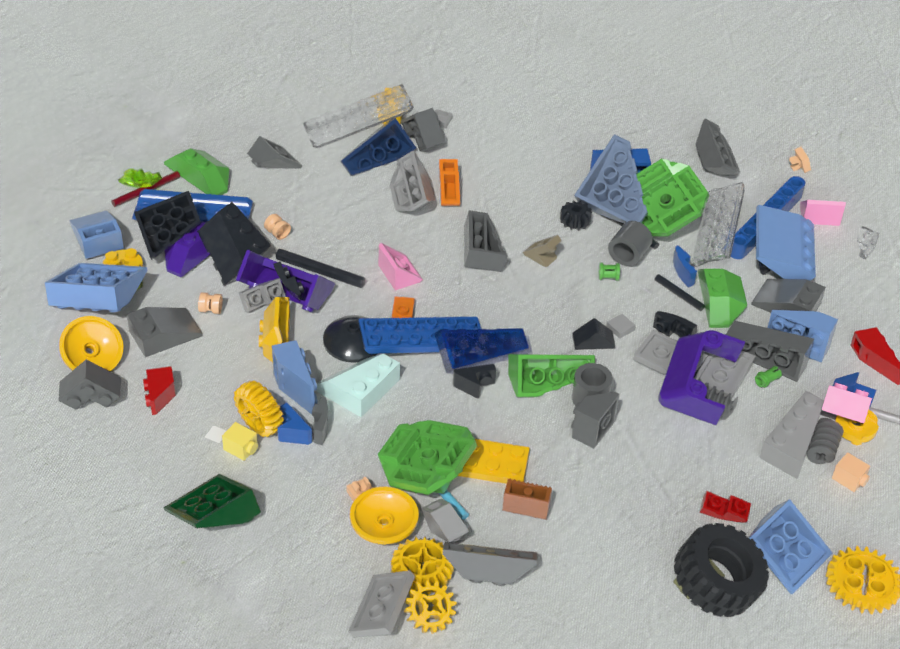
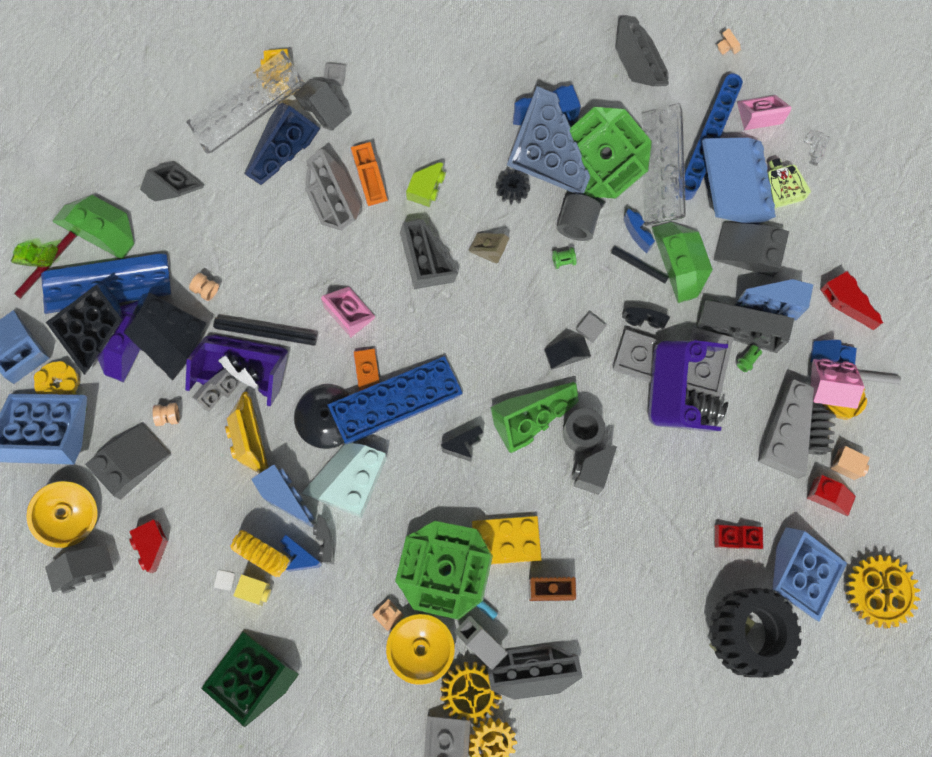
camera: 15 degrees left, 30 degrees up
(472, 347) = (459, 405): clear blue wedge -> none
(497, 199) = (424, 184): none -> lime slope
(827, 492) = (831, 495): none -> red slope
(832, 263) = (786, 184): none -> yellowish green torso

